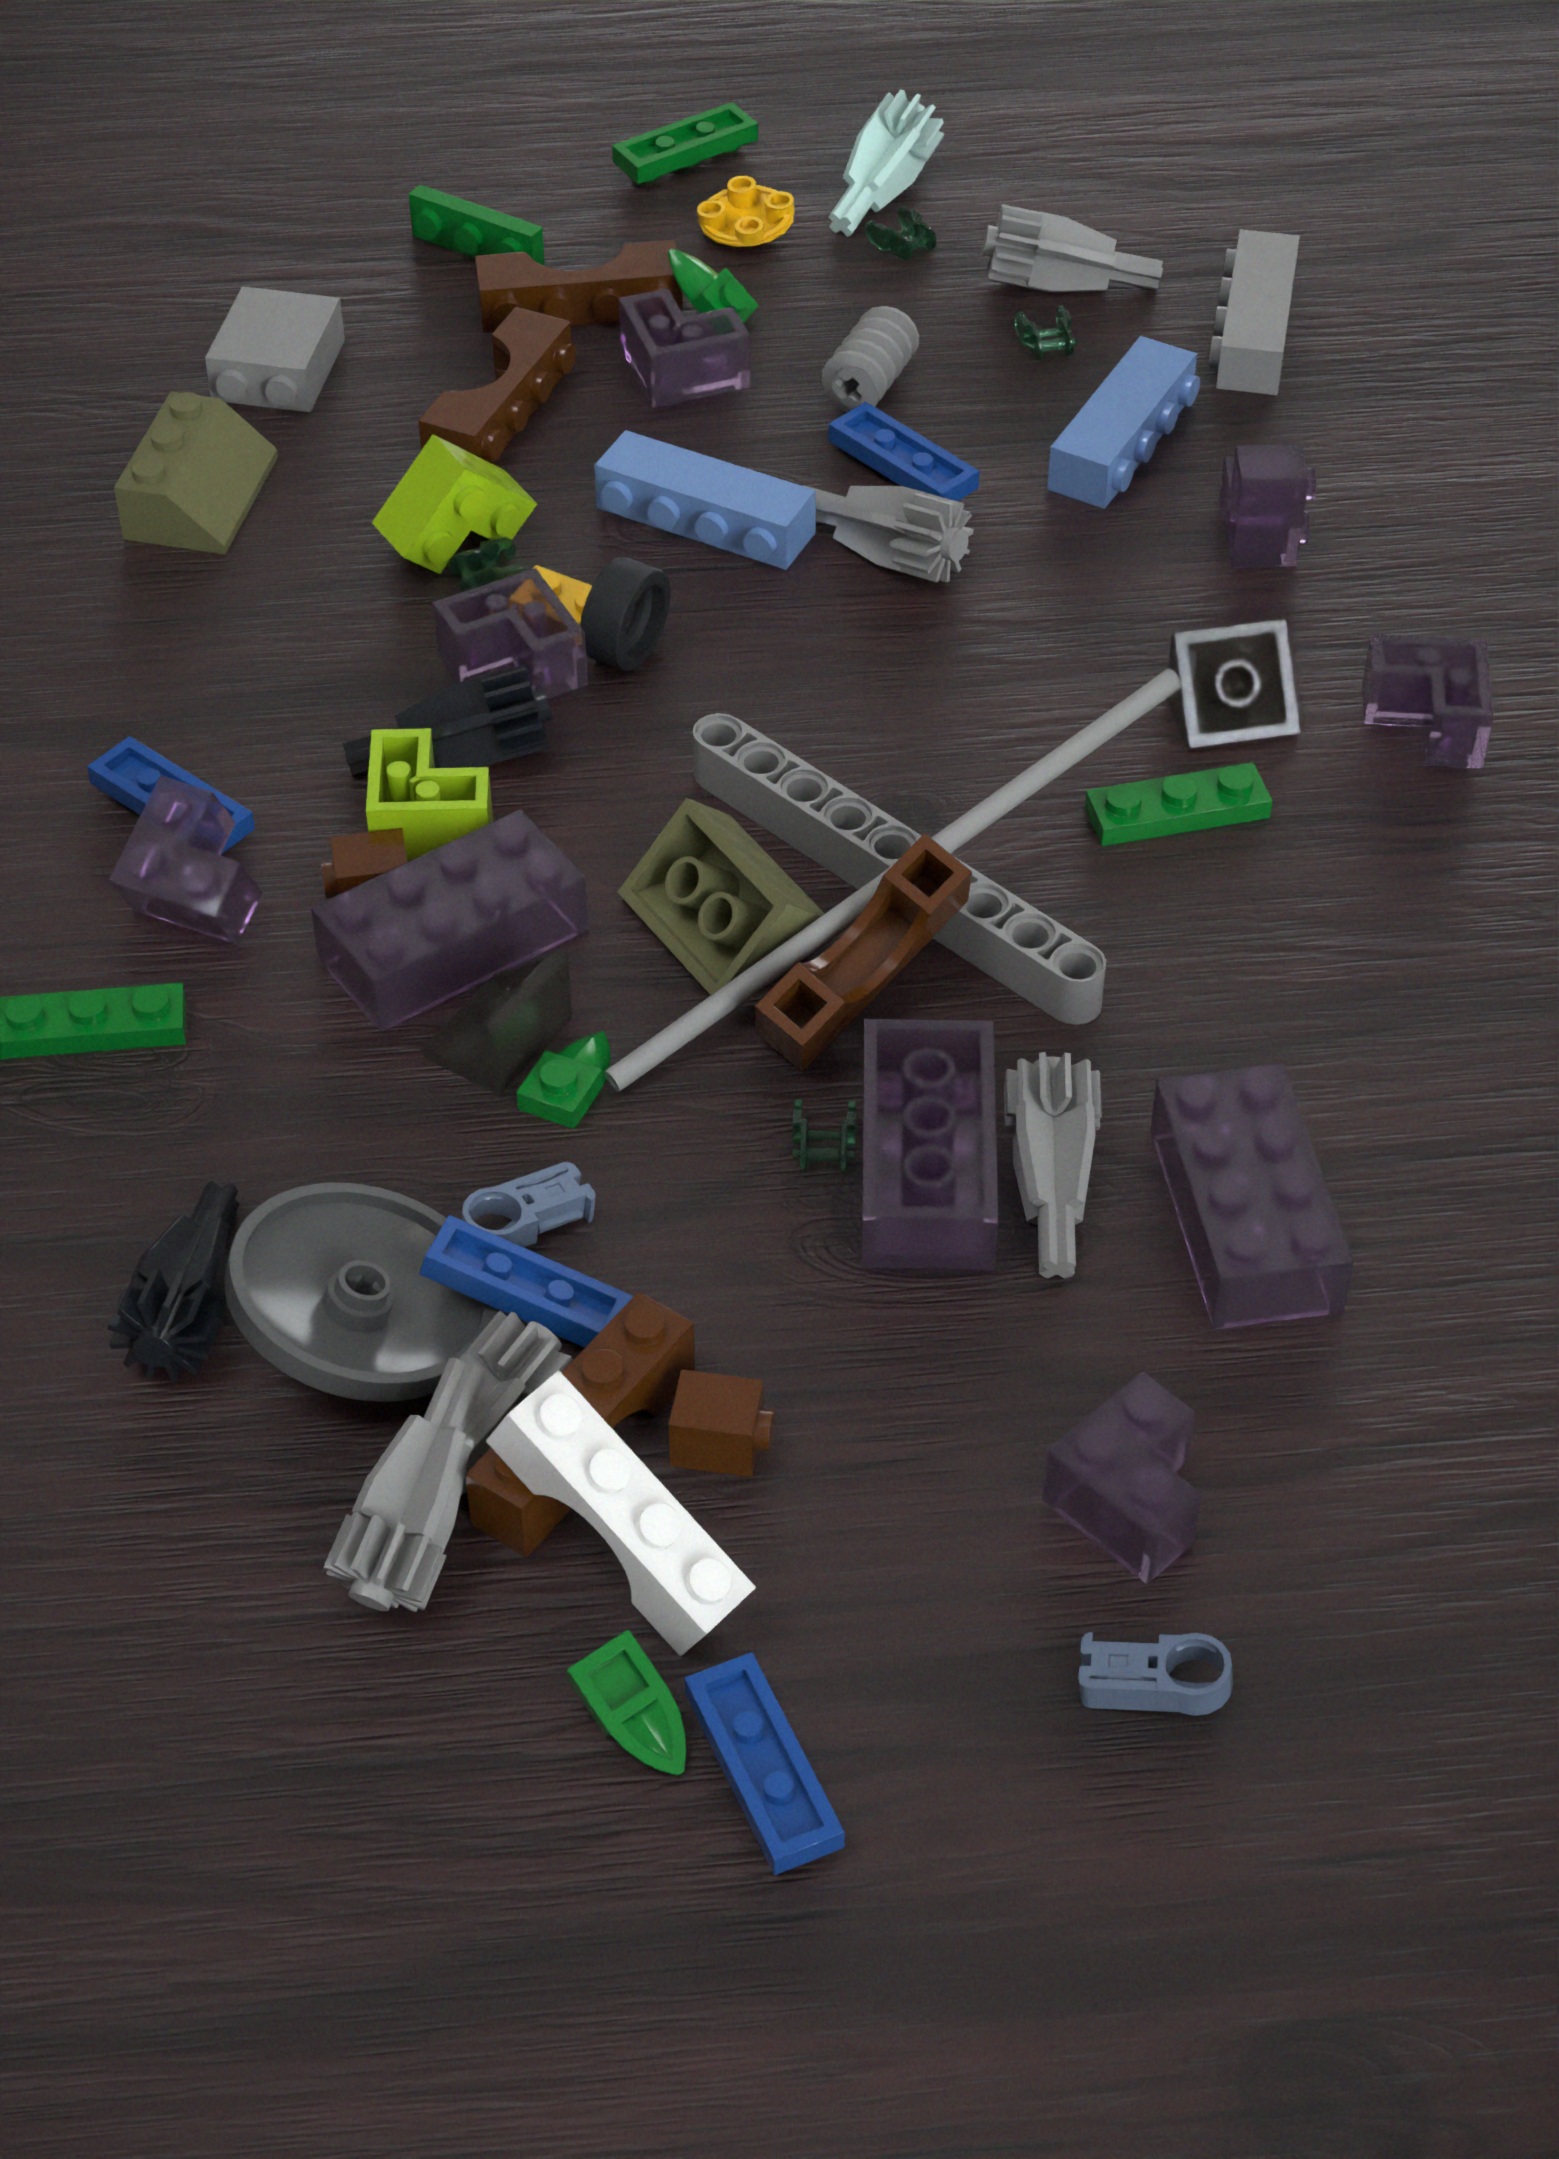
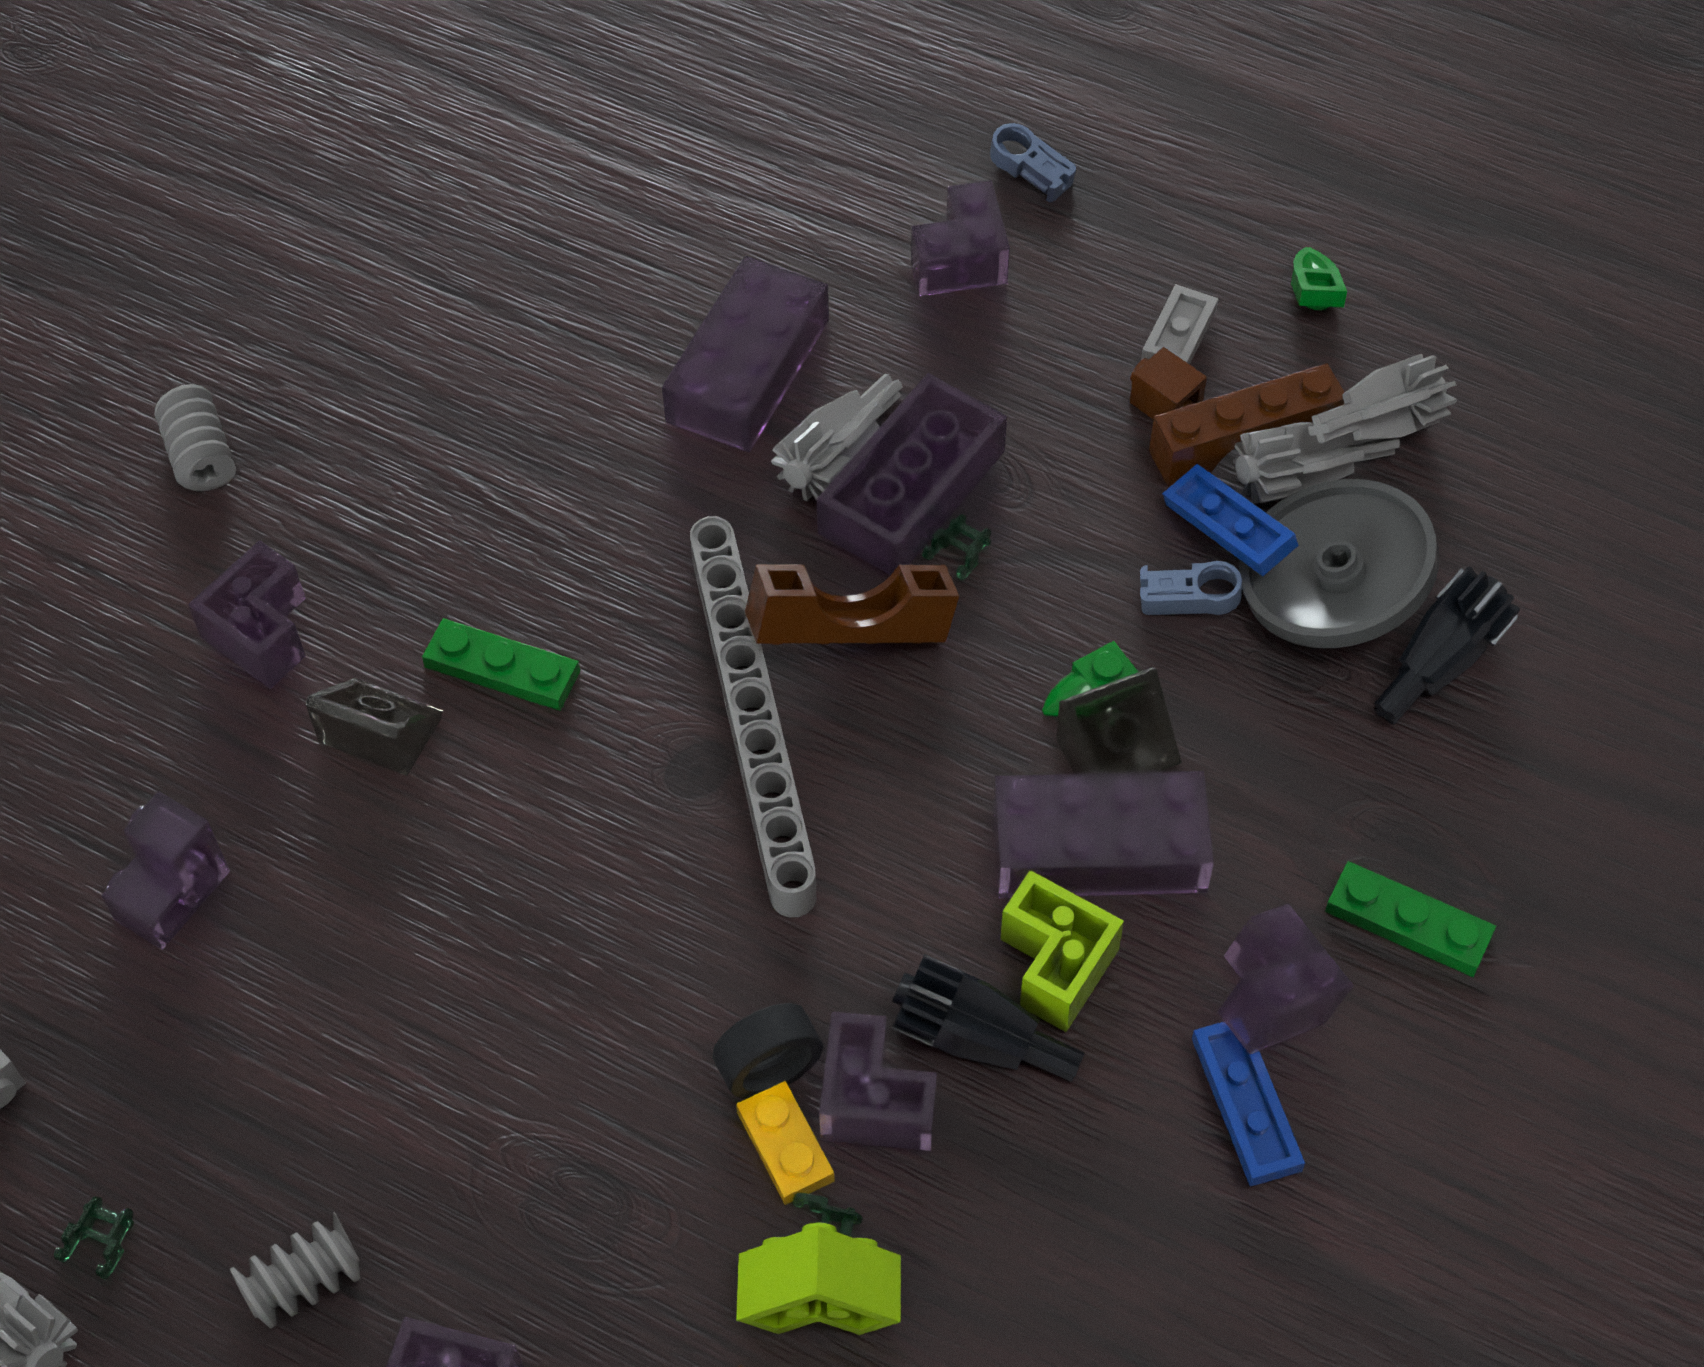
camera: 145 degrees left, 10 degrees up
(362, 858) = (1145, 915): reddish brown brick -> none
(672, 1564) = (1294, 333): white arch -> none
(705, 499) = (587, 1182): medium blue brick -> none
(715, 895) = (893, 744): olive slope -> none
(763, 1521) = (1181, 323): none -> light grey plate
(764, 1763) = (1265, 219): blue plate -> none
(846, 912) = (765, 655): light grey piece -> none
(899, 528) = (458, 1010): light grey piece -> none
(902, 453) = (373, 1140): blue plate -> none
(1123, 422) = (159, 1056): medium blue brick -> none

